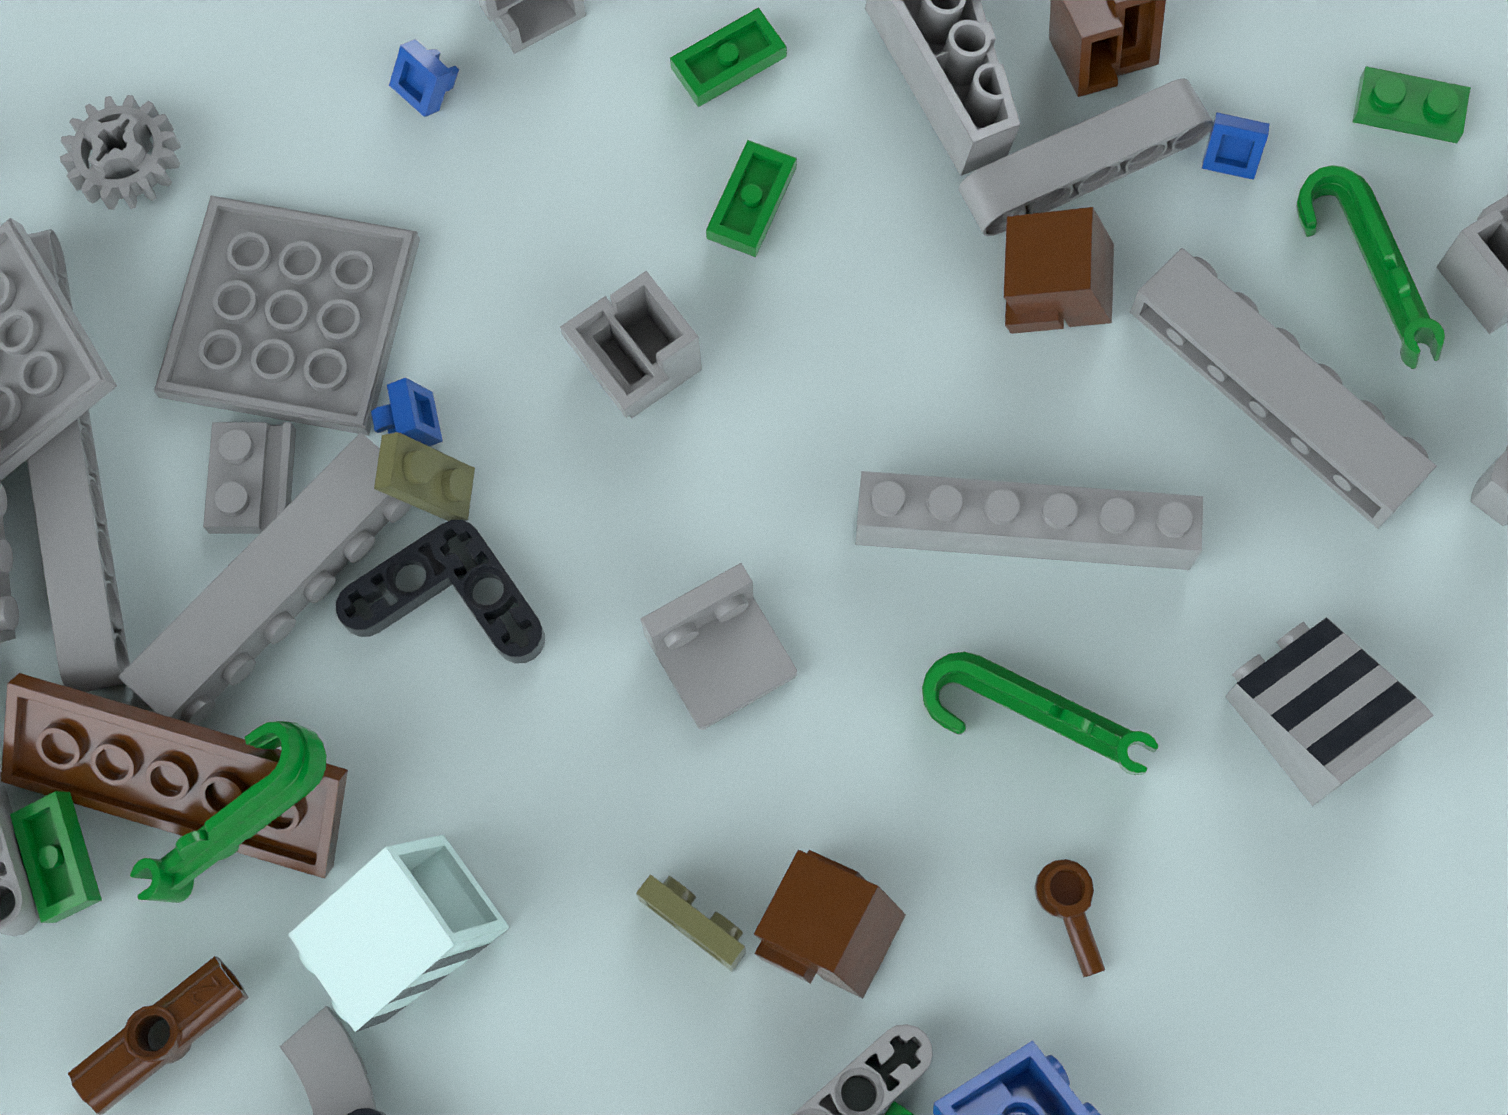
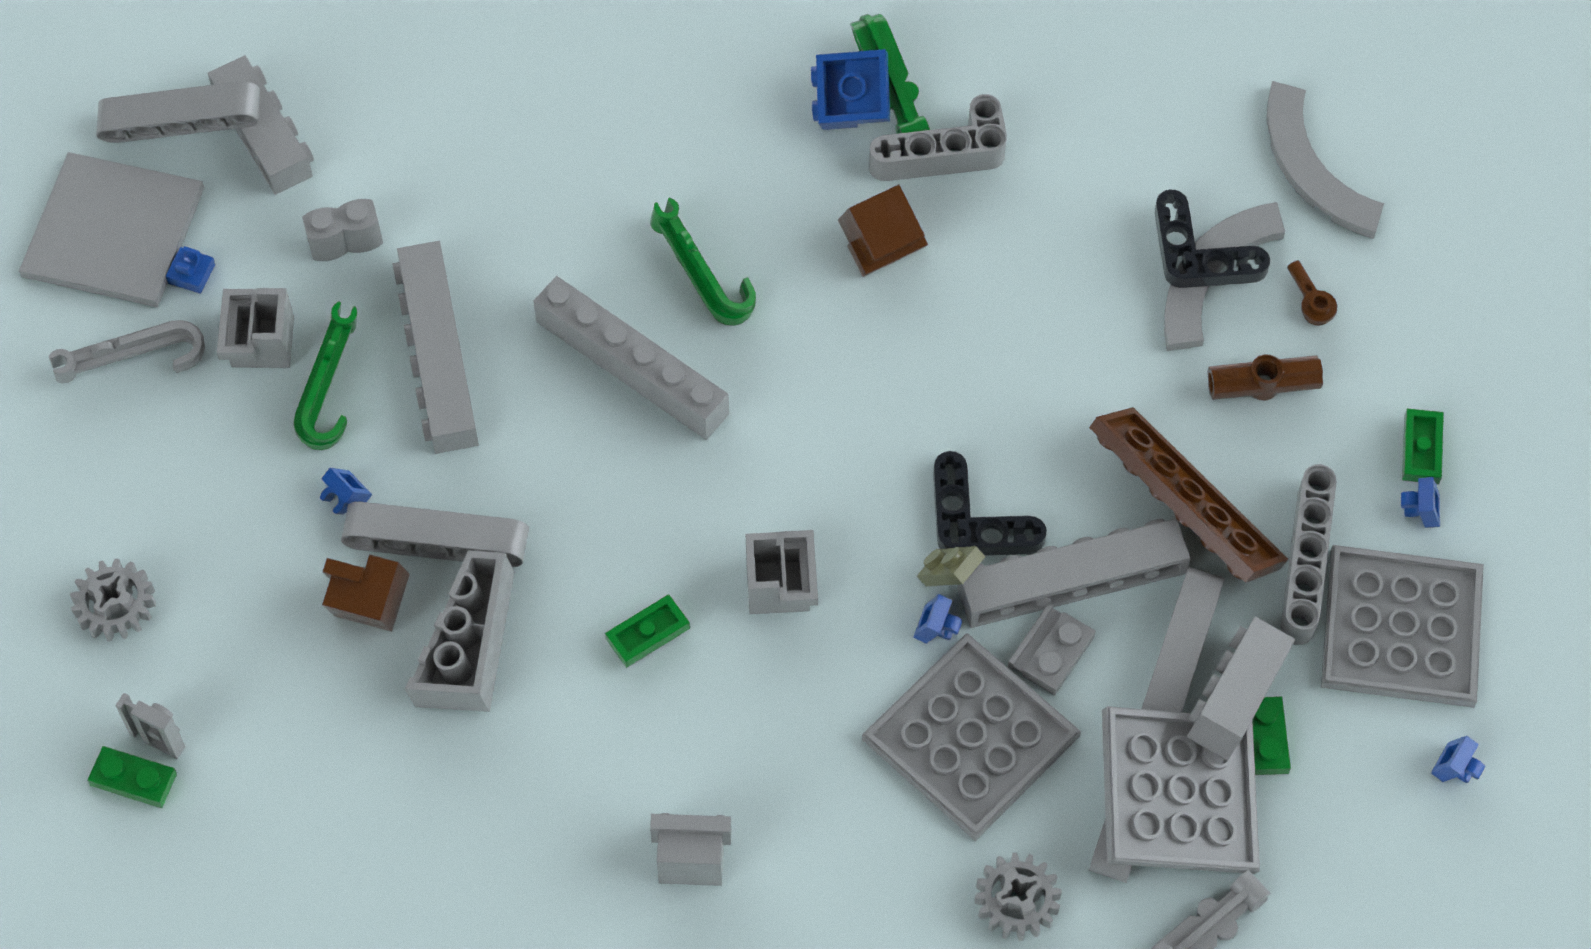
camera: 150 degrees left, 10 degrees down
(55, 857) = (1276, 497): green plate -> none
(294, 777) = (1161, 433): green piece -> none
(396, 930) = (1107, 351): light aqua slope -> none
(422, 77) = (797, 829): blue tile -> none
(713, 935) = (954, 282): olive plate -> none
(718, 647) = (844, 394): light grey bracket -> none
(728, 57) = (597, 727): green plate -> none
(1057, 271) = (509, 475): reddish brown plate -> none
(1066, 892) = (748, 182): reddish brown plate -> none
(1323, 707) = (553, 174): light grey slope -> none
(1411, 104) = (222, 457): green plate -> none

